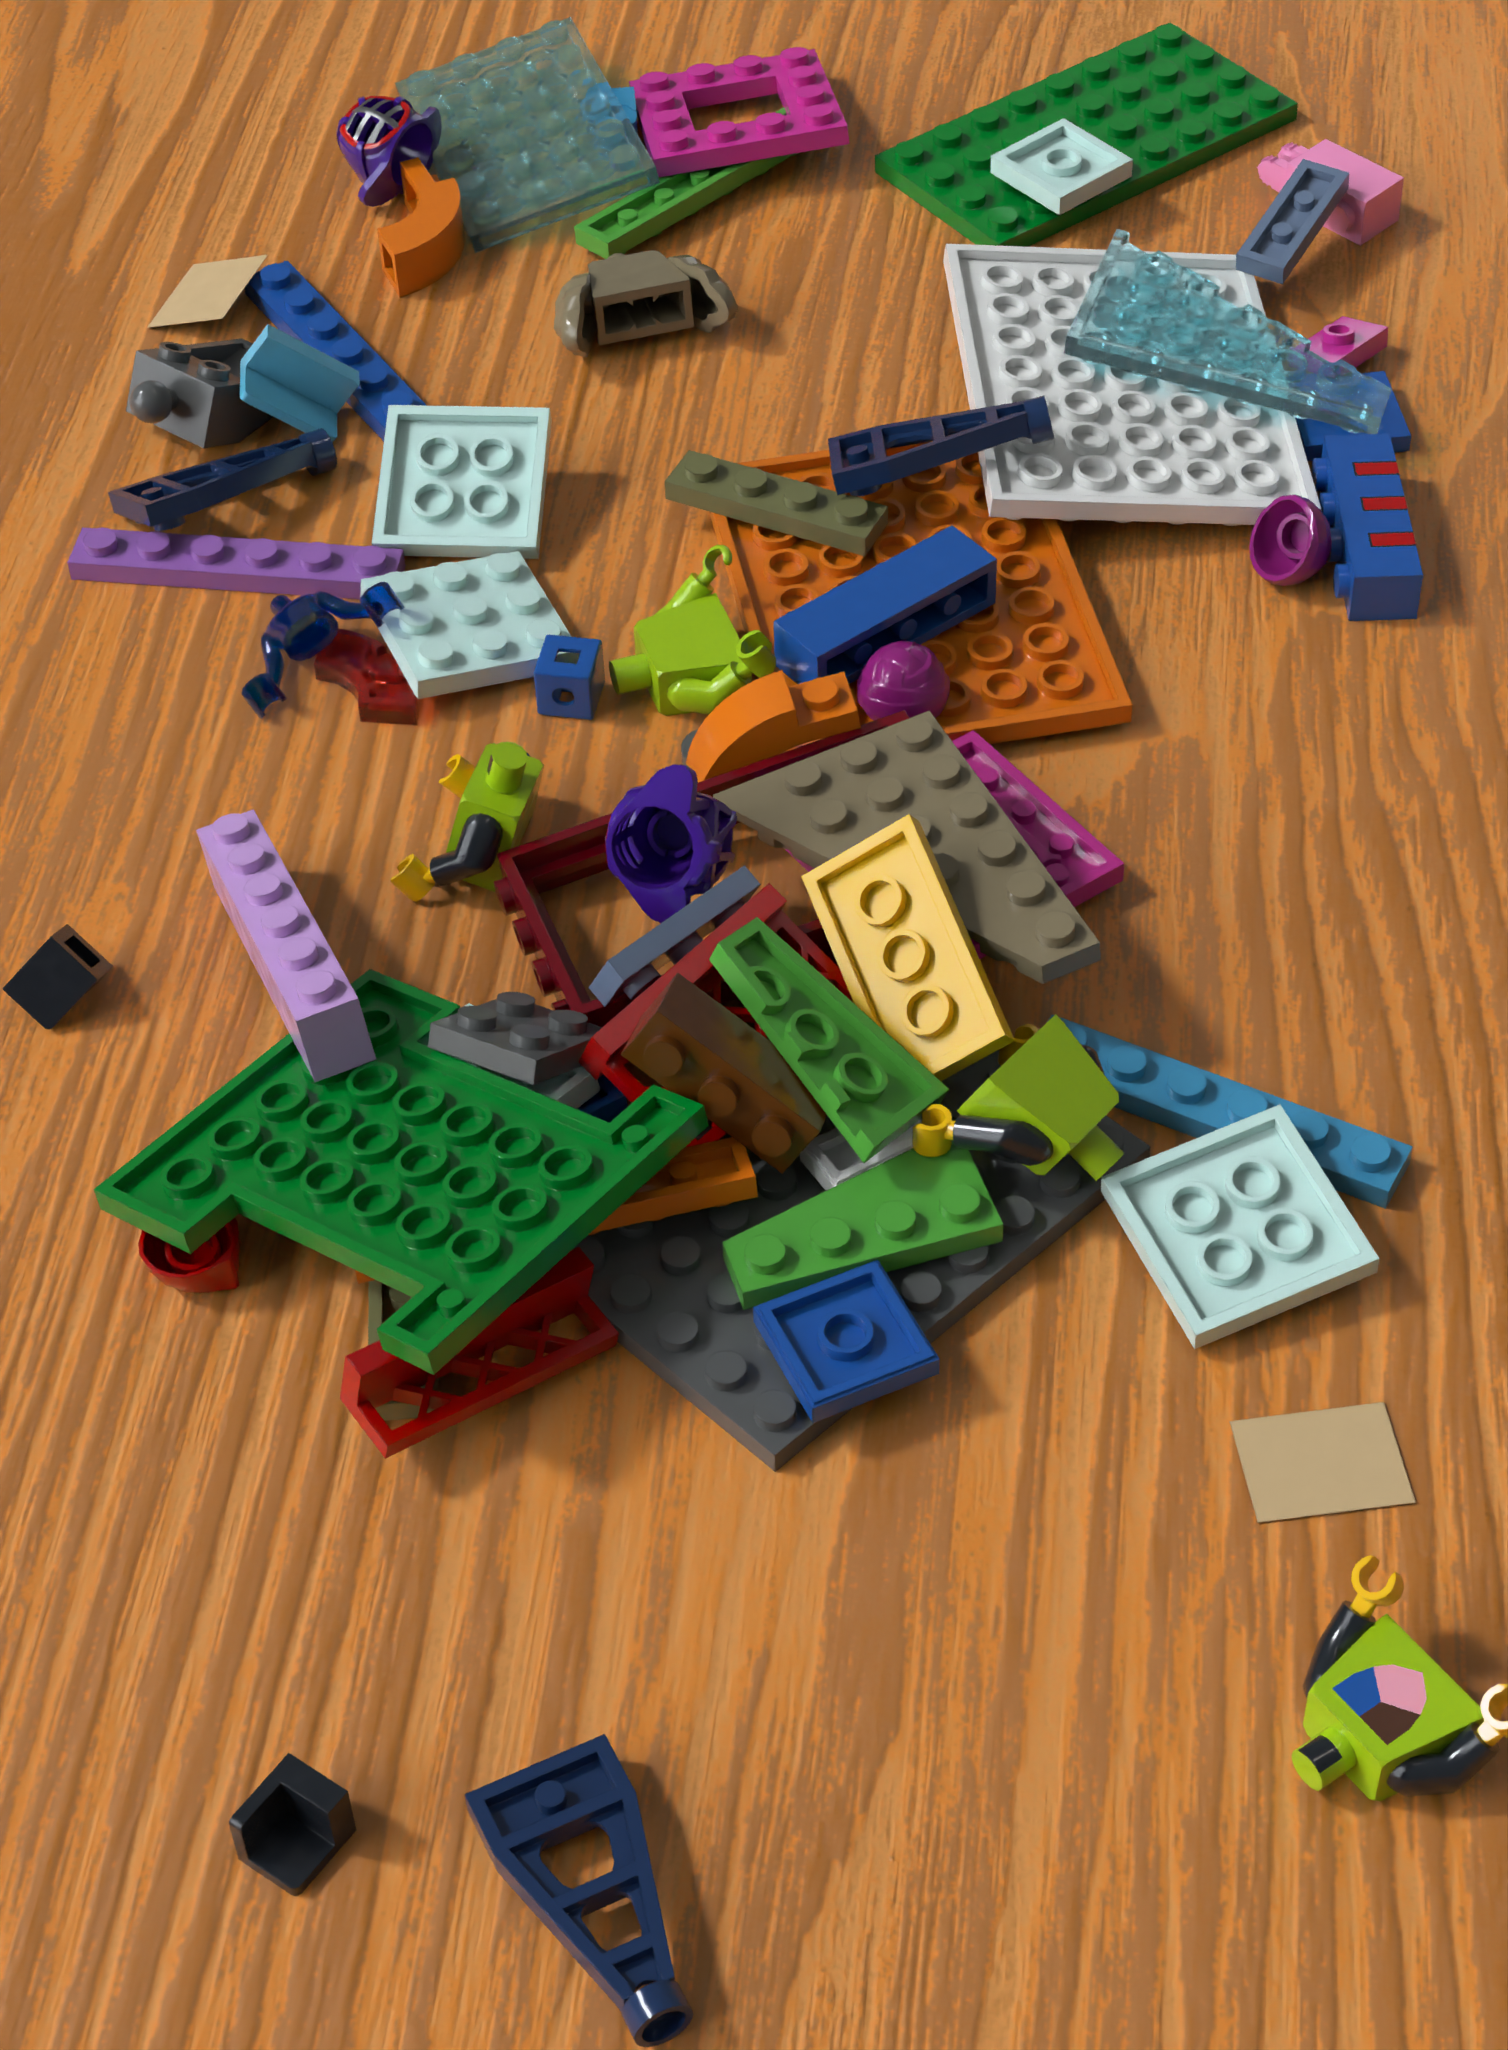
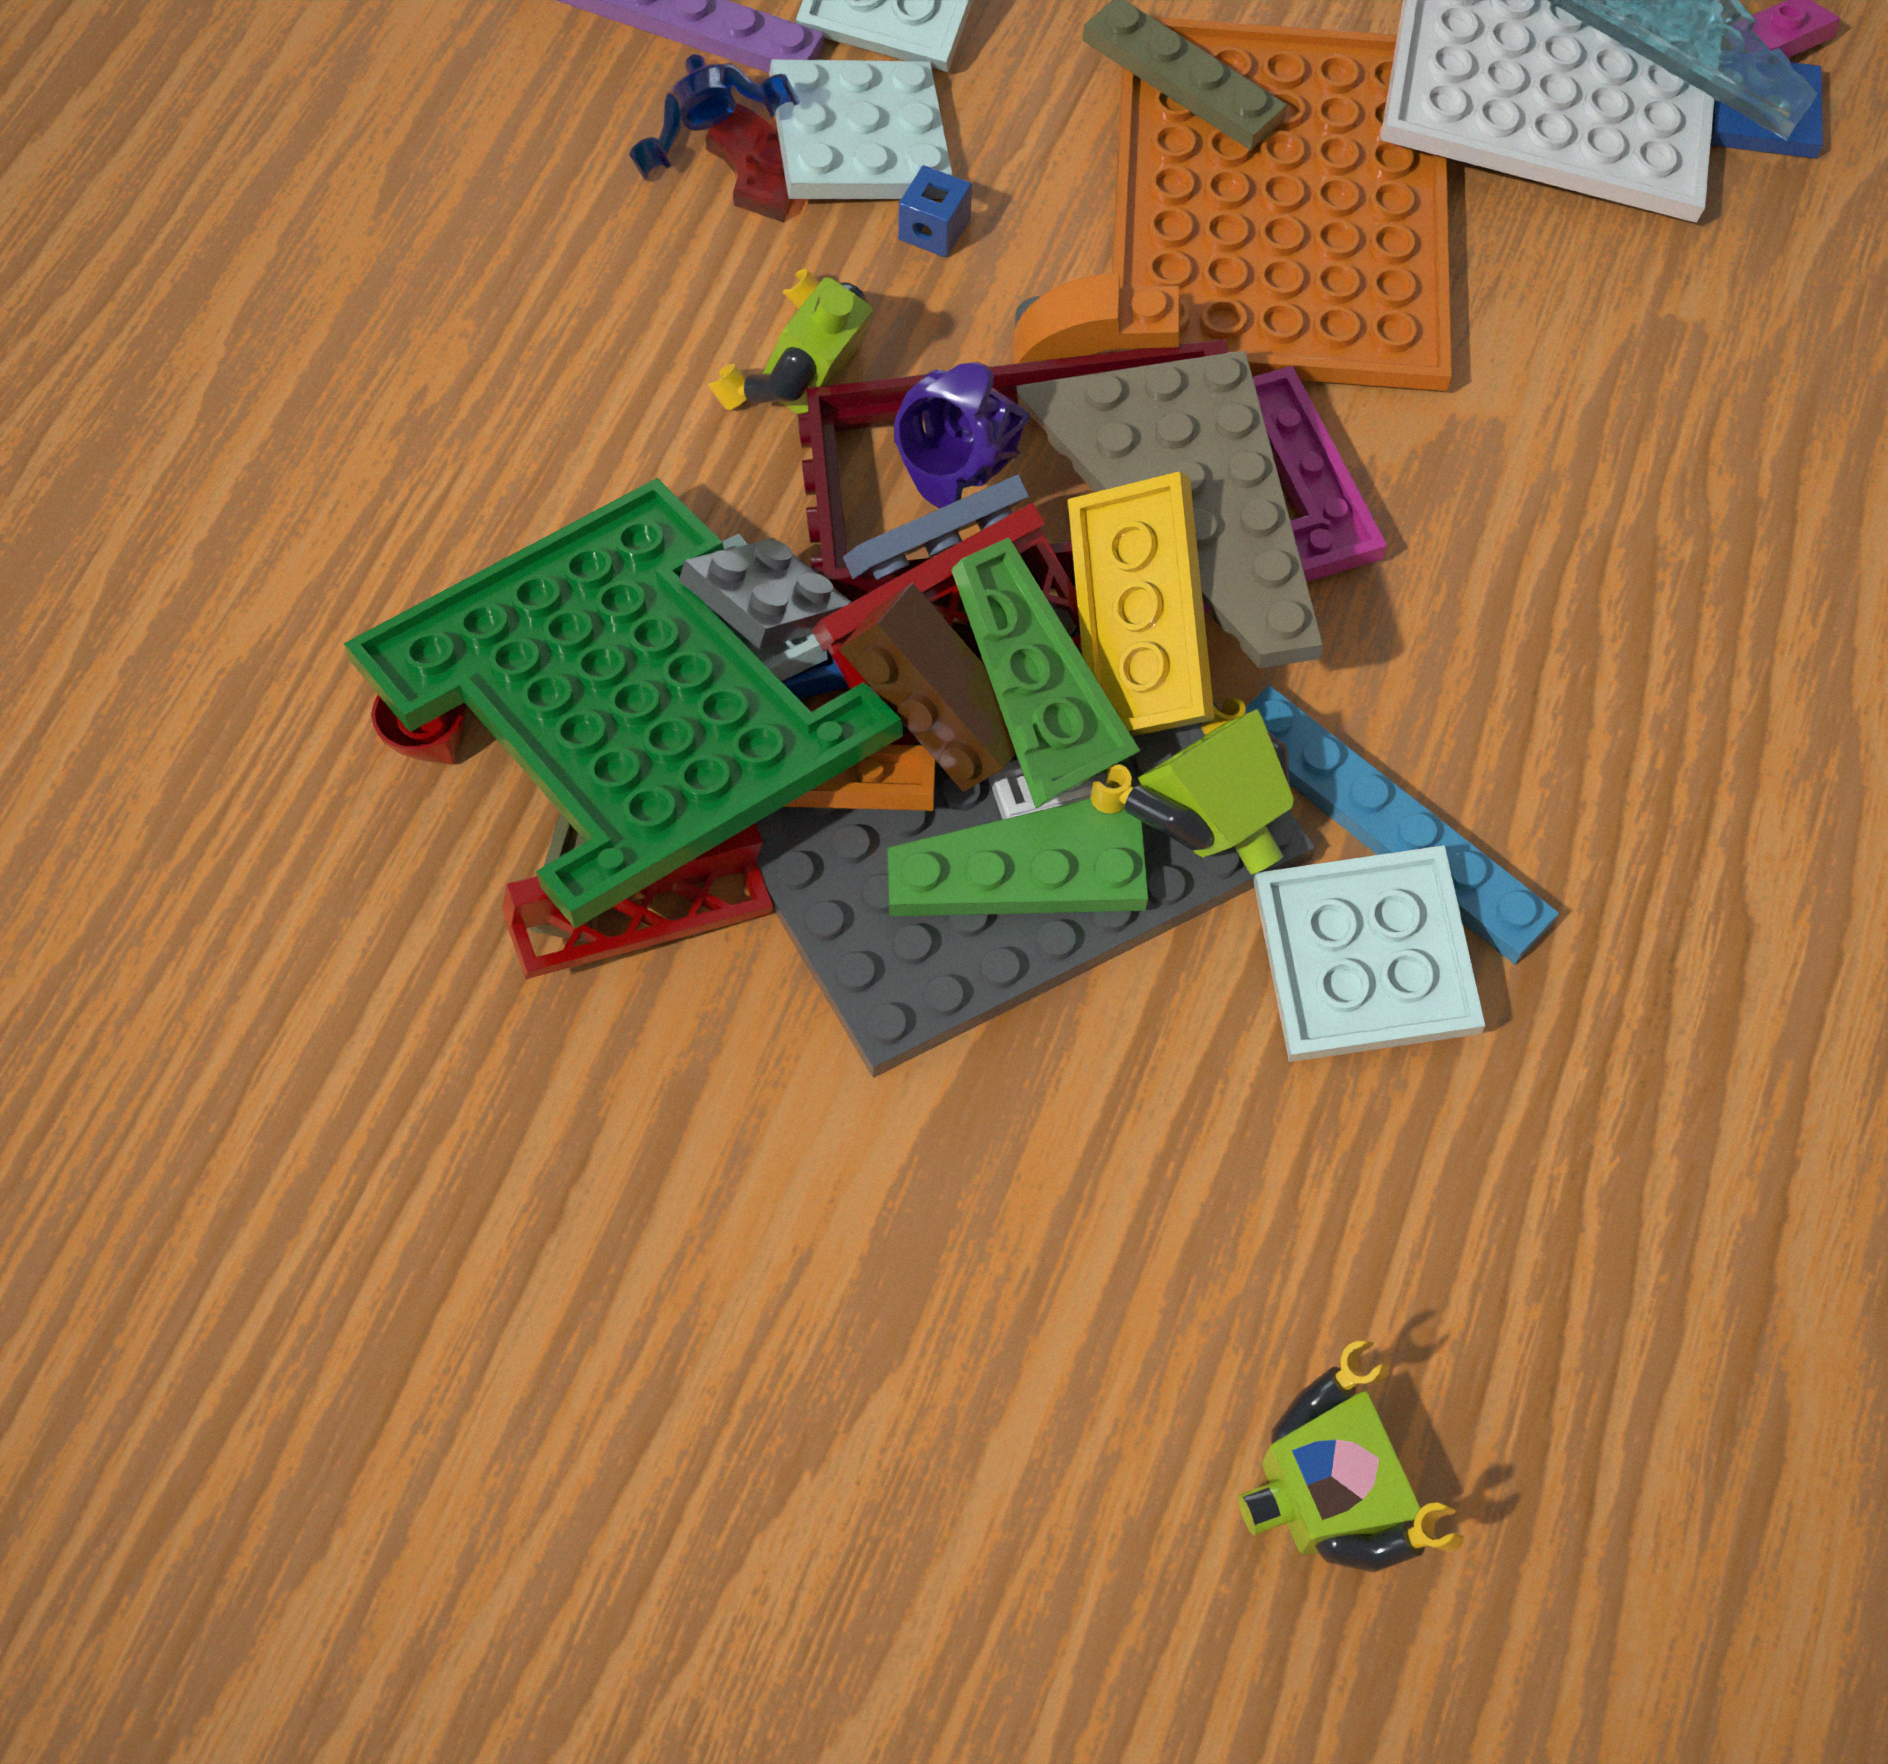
camera: 10 degrees right, 15 degrees up
(57, 976) = (381, 408): black panel -> none
(286, 946) = (583, 438): lavender brick -> none
(292, 1825) = (344, 1310): black panel -> none
(554, 1804) = (569, 1355): dark blue plate -> none
(691, 650) = (1056, 213): lime torso -> none
(845, 1341) = (969, 975): blue tile -> none
(861, 457) = (1277, 45): dark blue plate -> none
(895, 601) = (1247, 220): blue brick -> none
(903, 679) = (1239, 304): magenta piece -> none
(1290, 541) = (1662, 236): magenta piece -> none
(1321, 1462) = (1368, 1206): tan sticker -> none
(1369, 527) = (1745, 237): blue brick -> none

